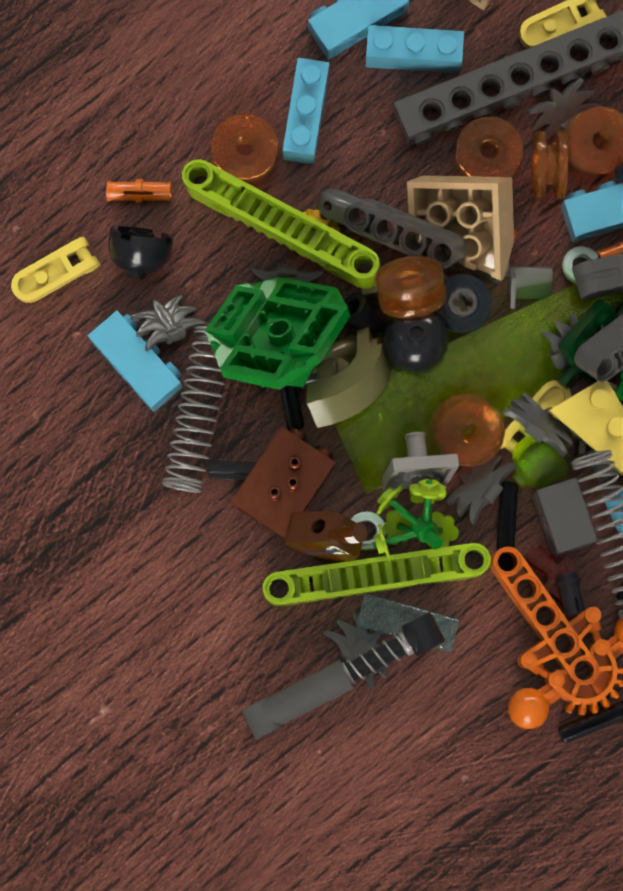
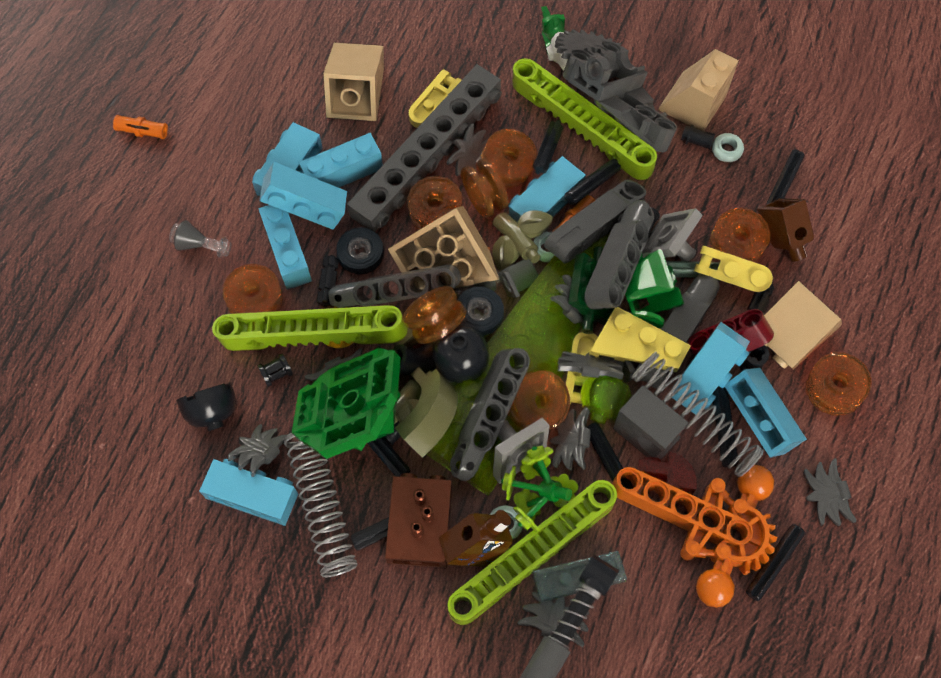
camera: 30 degrees left, 15 degrees down
(53, 271) = (148, 460): light yellow plate -> none
(139, 191) = (169, 373): orange pin -> none
(209, 43) = (186, 236): none -> piece
(225, 246) = (275, 370): none -> black bush
(330, 173) = (327, 279): none -> black axle
(352, 70) = (303, 195): none -> medium azure brick
(385, 144) = (356, 239): none -> black bush
(426, 415) = (499, 403): none -> dark grey piece
(554, 241) = (518, 237): none -> olive plant
(570, 593) = (691, 476): black pin -> none

